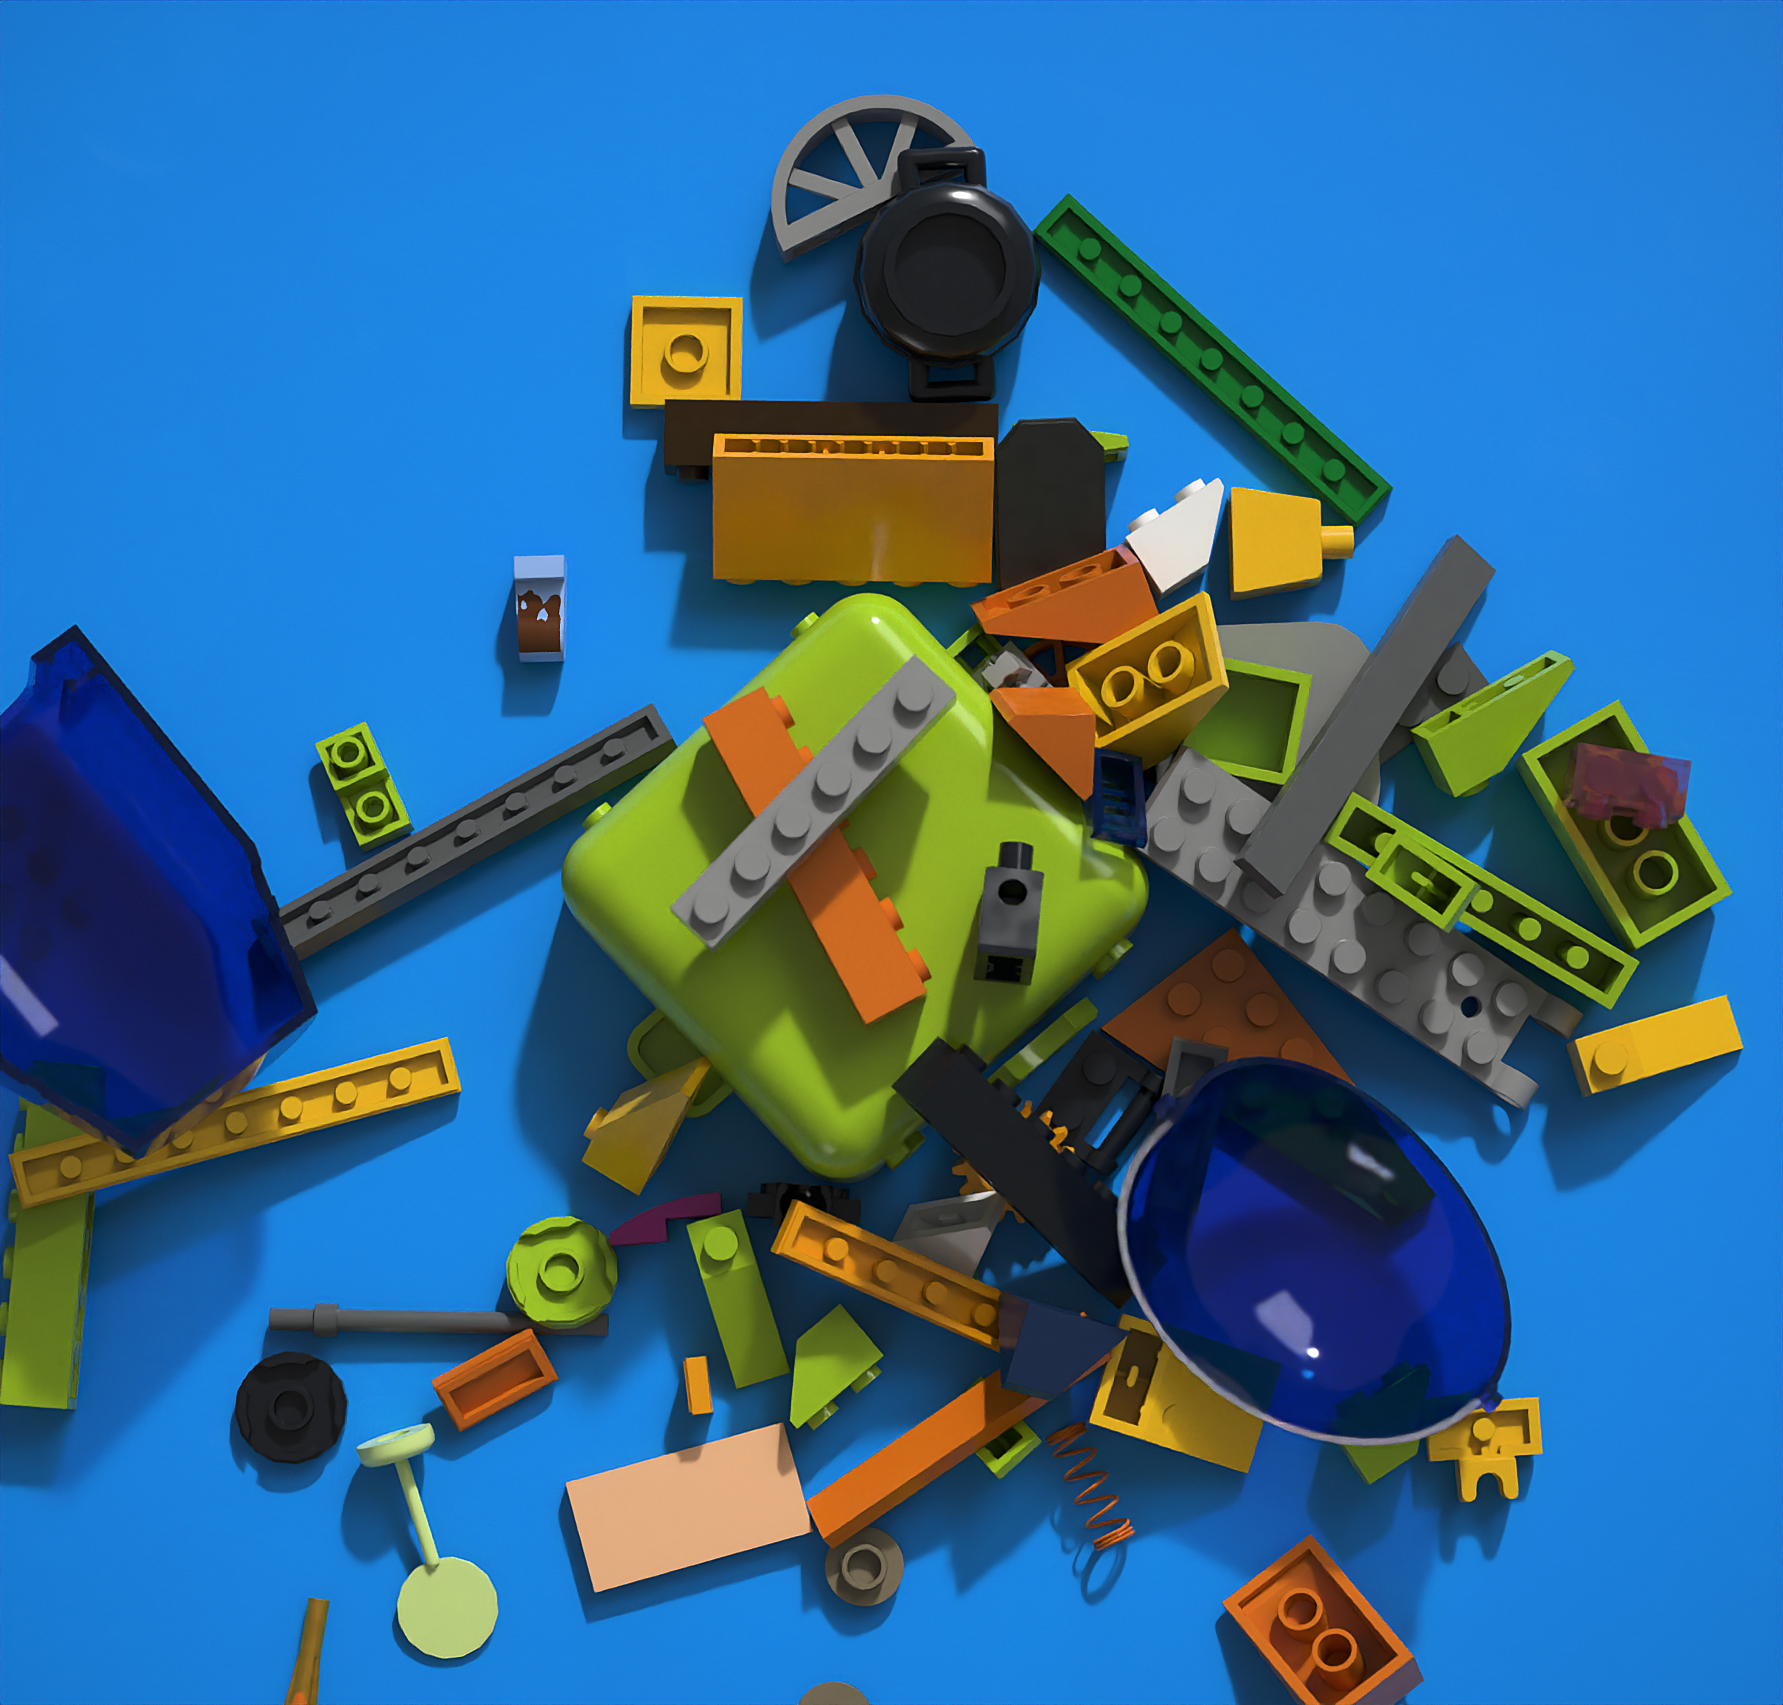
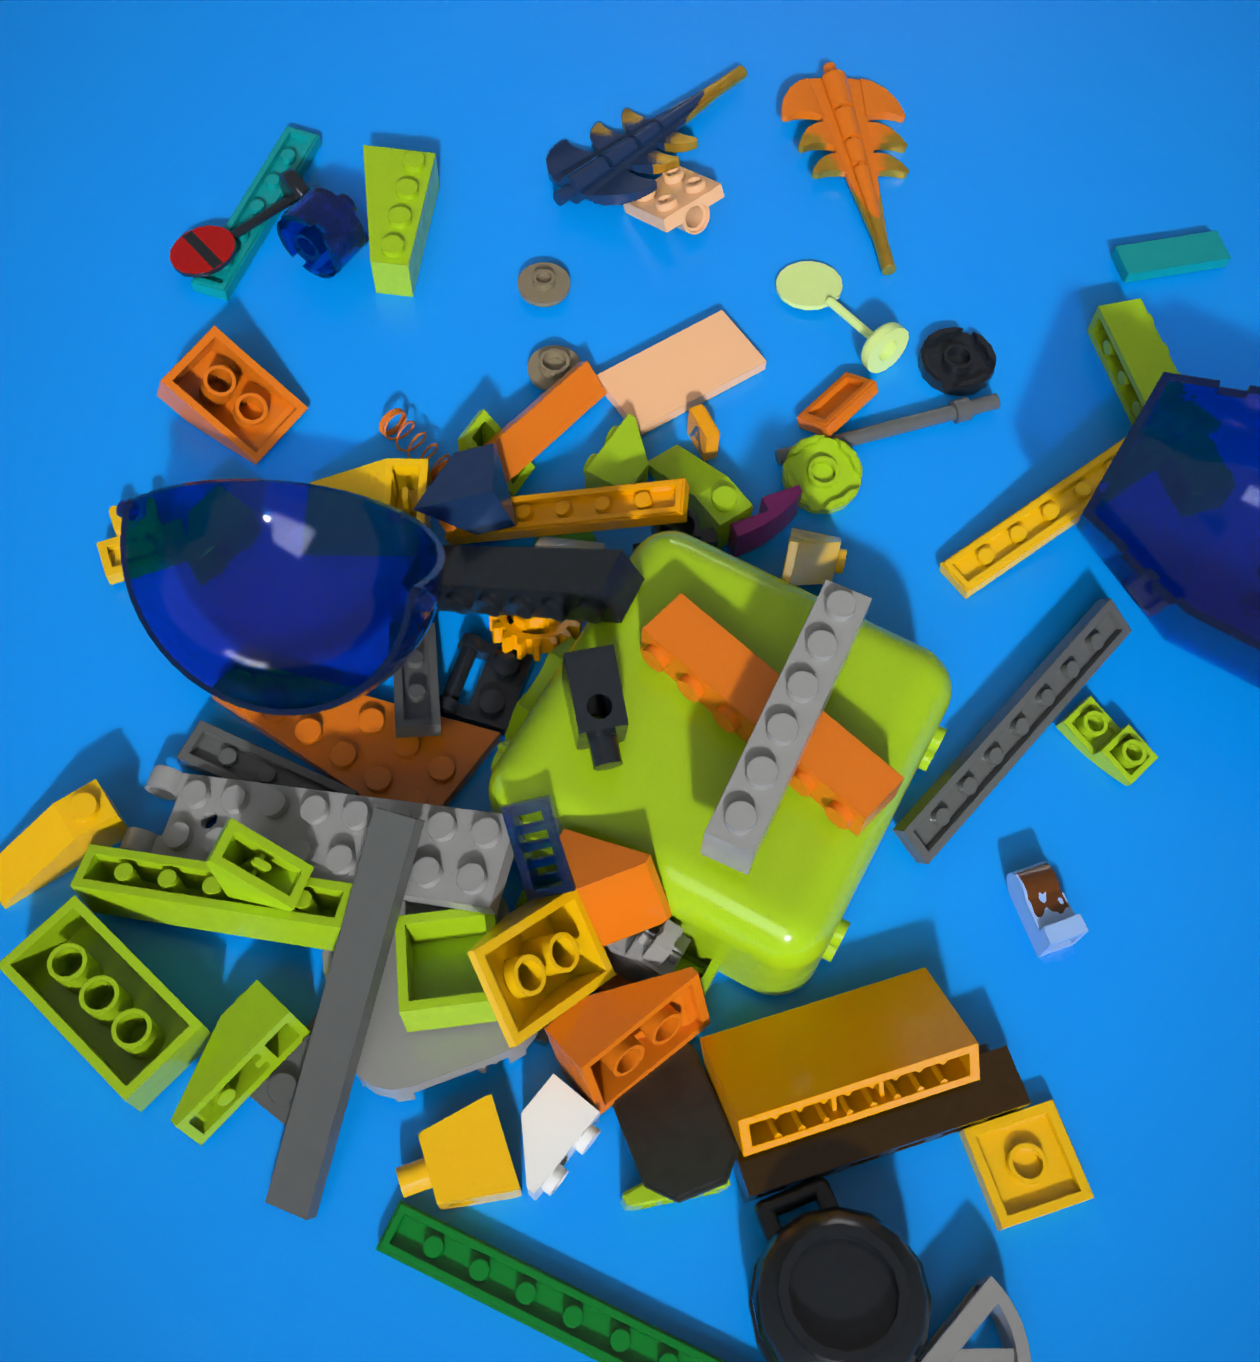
camera: 160 degrees right, 20 degrees down
(1396, 1063) = (230, 757): none -> dark grey plate
(1626, 784) = (98, 1015): clear pink brick -> none

